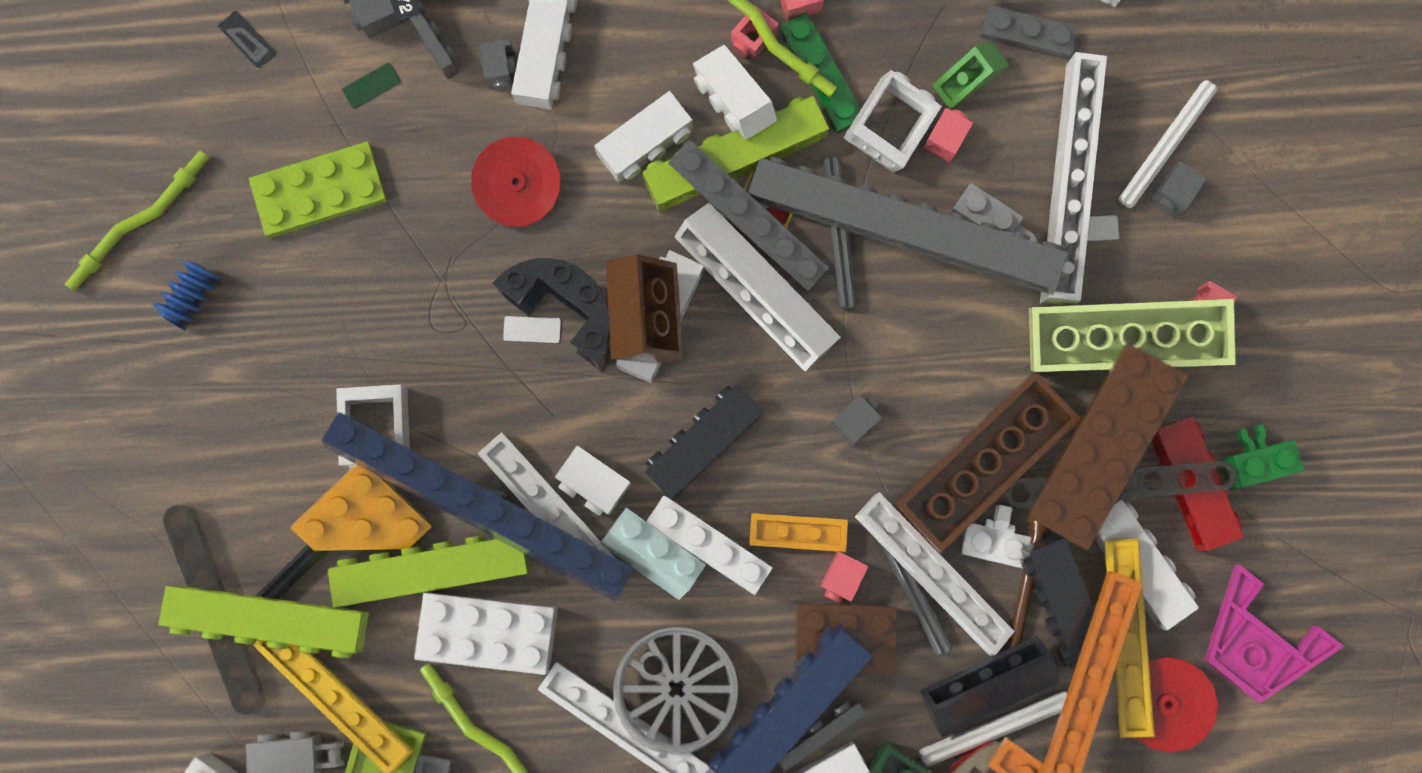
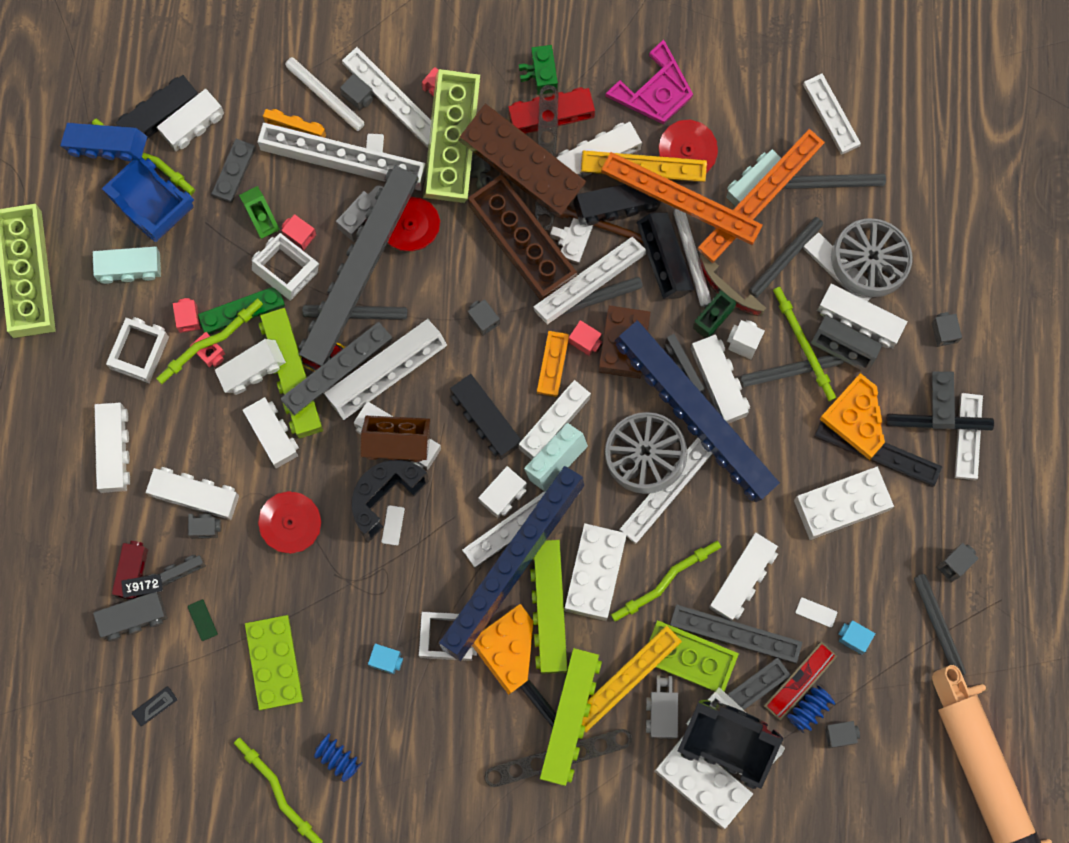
camera: 85 degrees left, 5 degrees down
(332, 342) = (385, 659): none -> medium azure brick
(982, 302) = (416, 226): none -> red piece
(1084, 384) = (478, 170): none -> dark grey plate
(1113, 105) = (294, 122): none -> light orange plate
(1183, 236) = (389, 94): none -> white plate

